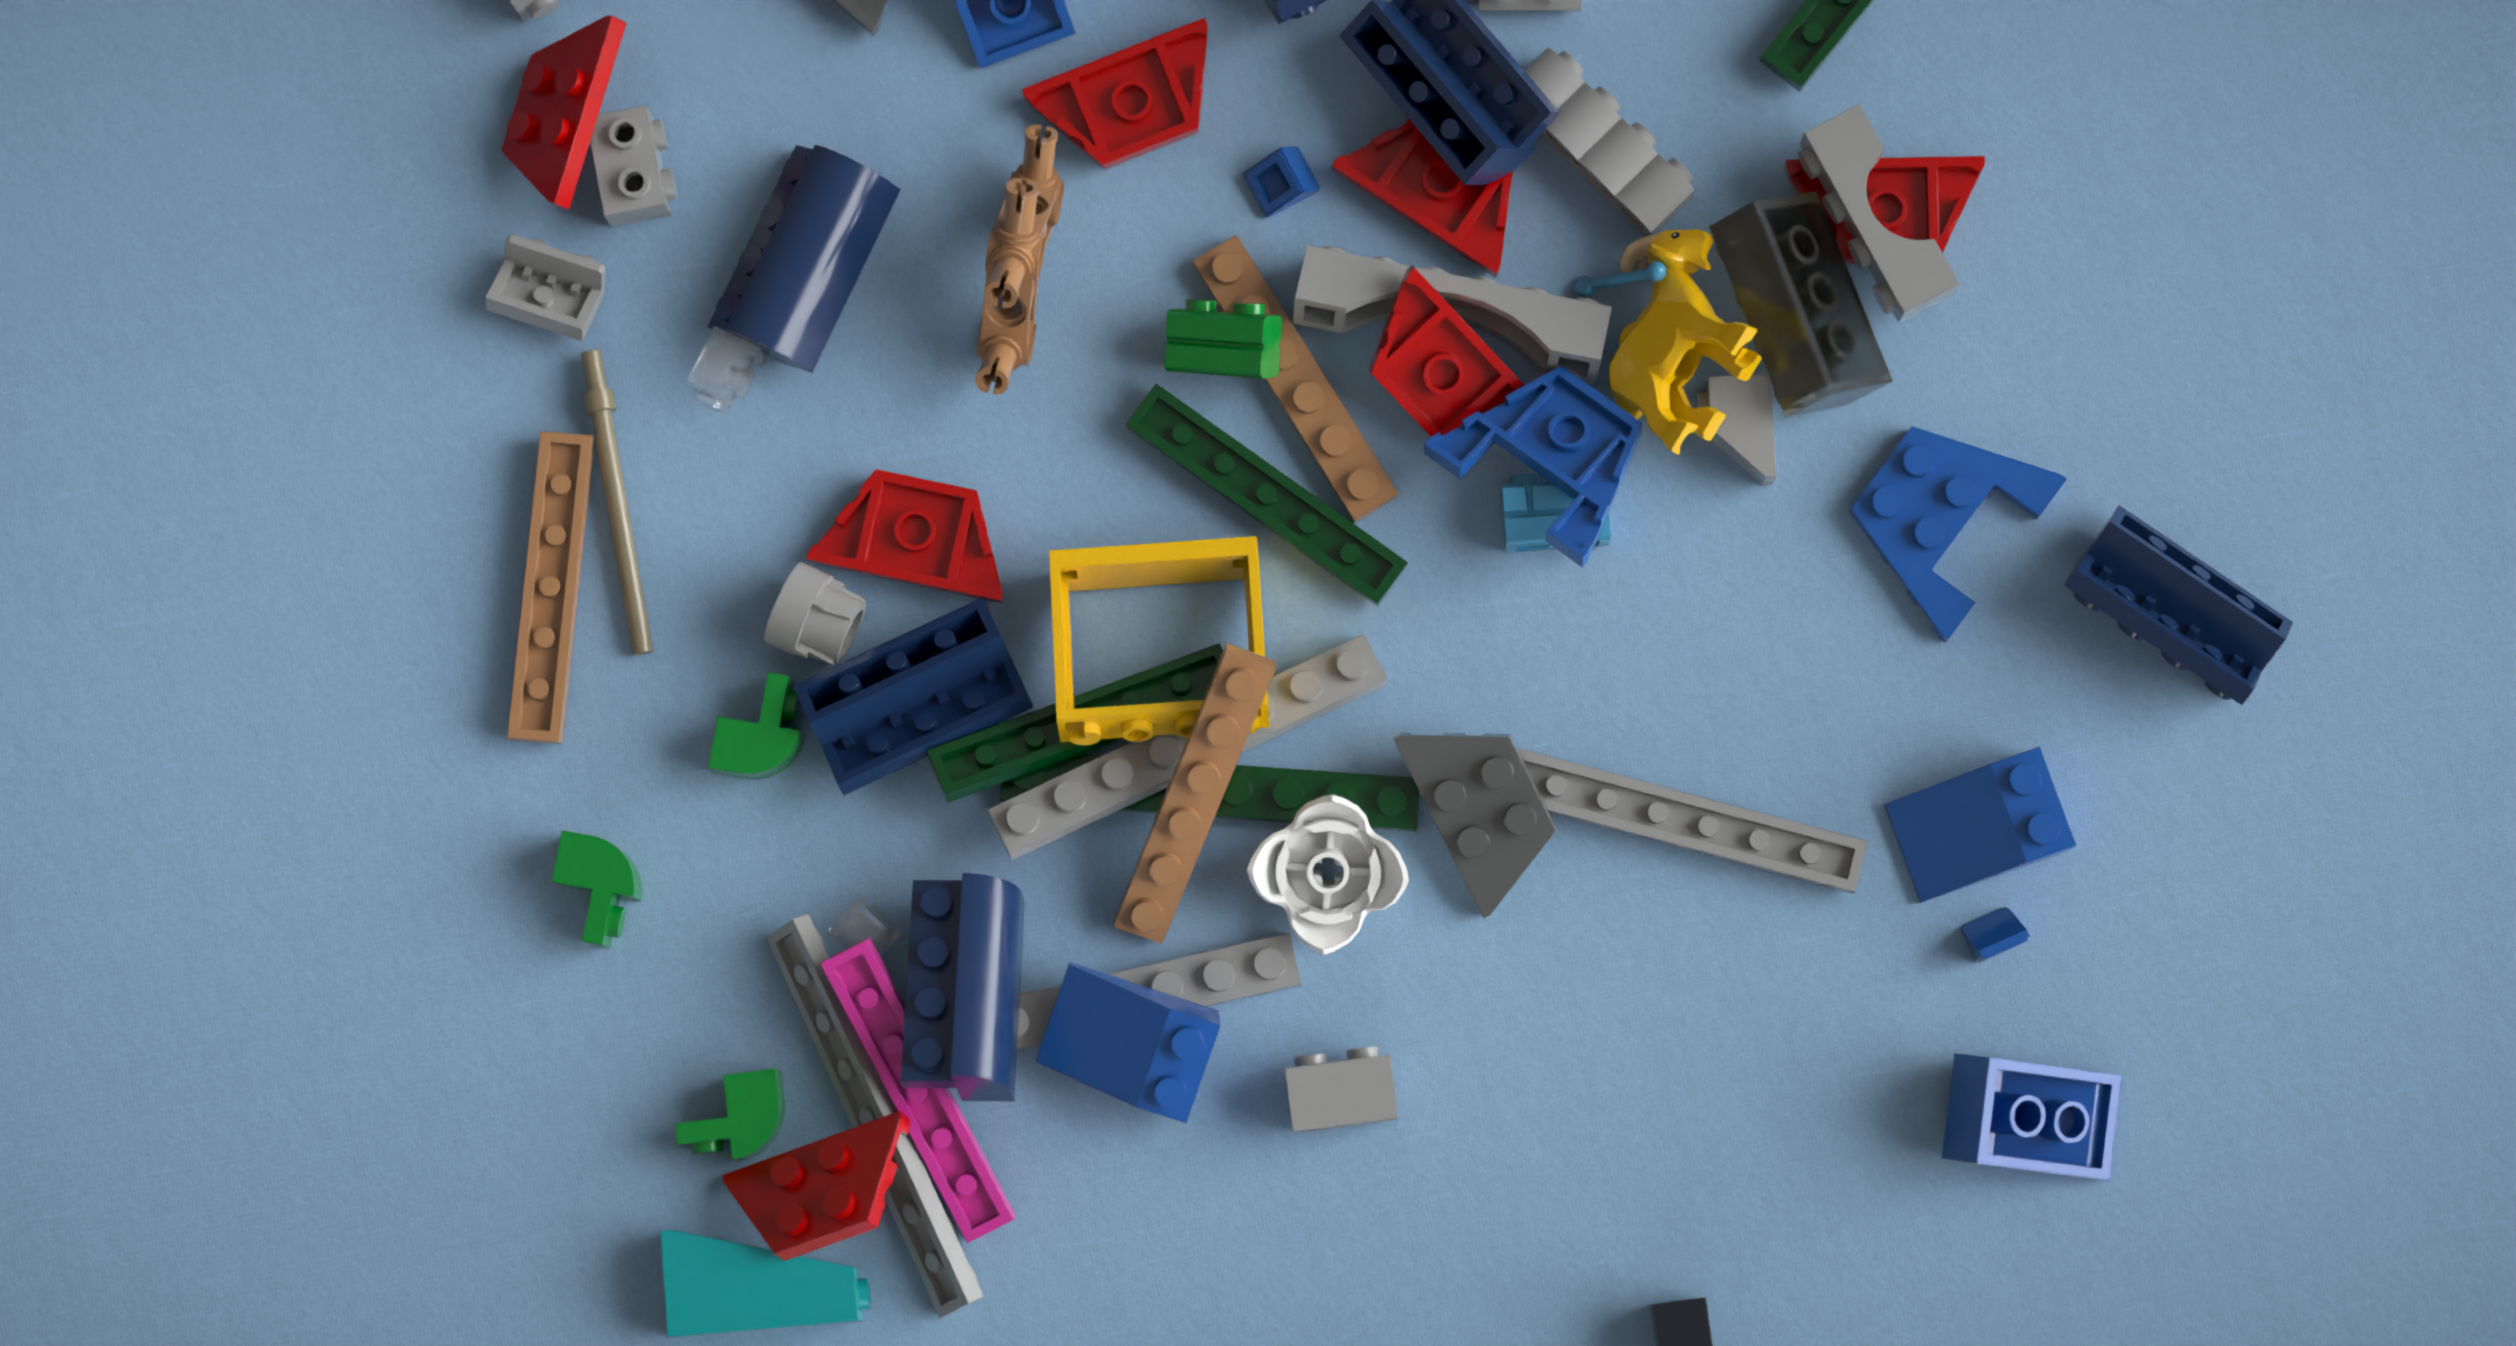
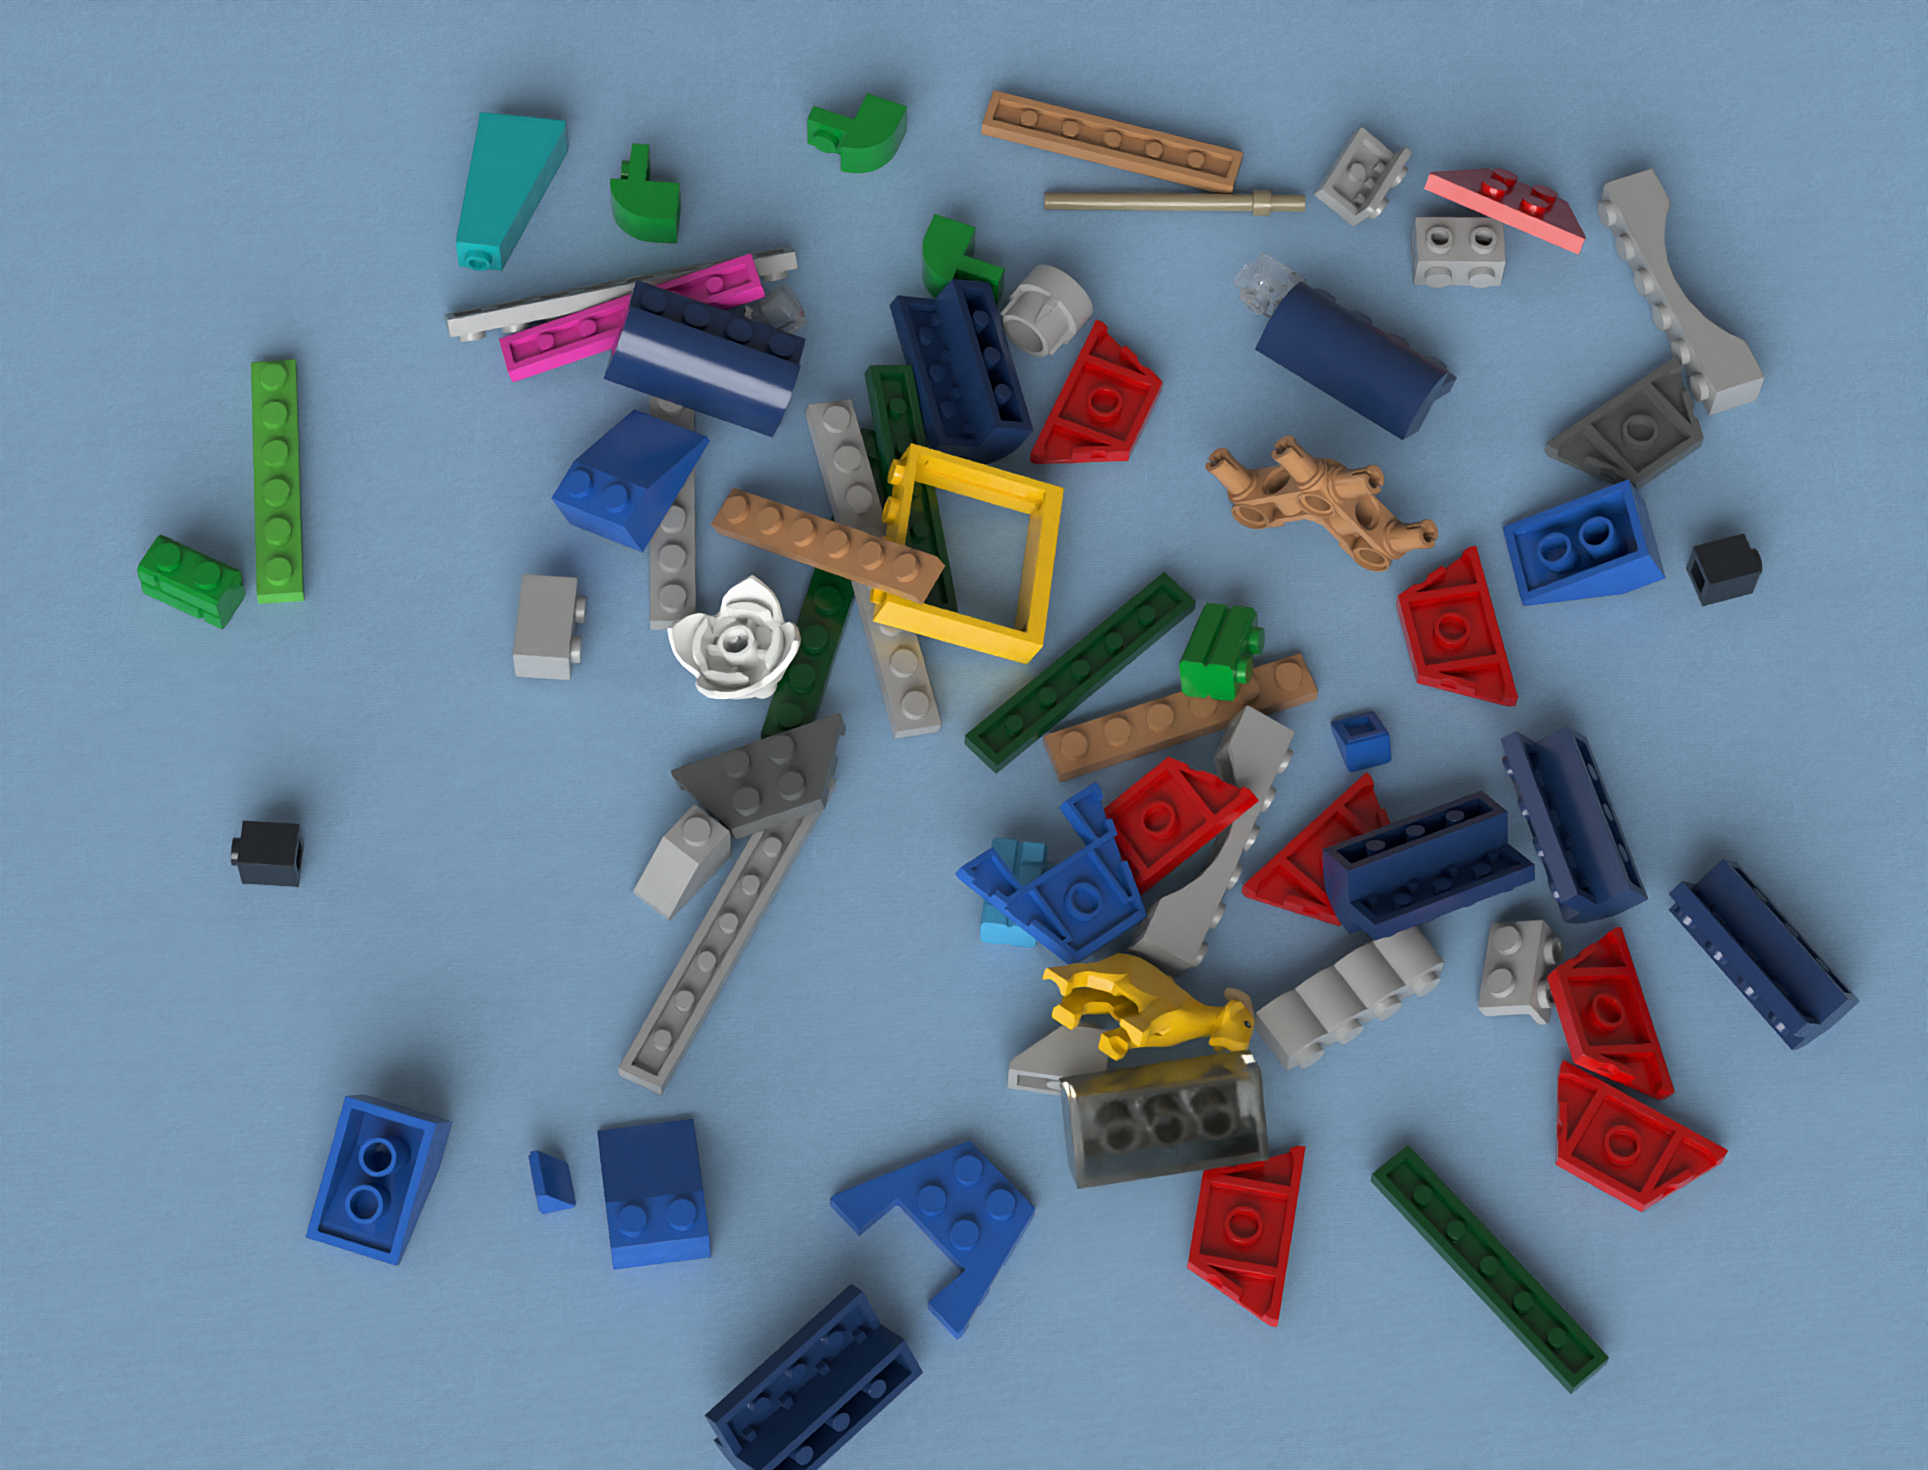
camera: 90 degrees right, 20 degrees down
(821, 1188) = (568, 231): red wing -> none
(1586, 286) = (1216, 998): dark azure hinge -> none
(1597, 878) = (684, 862): none -> light grey slope
(1906, 271) = (1293, 1184): light grey arch -> none

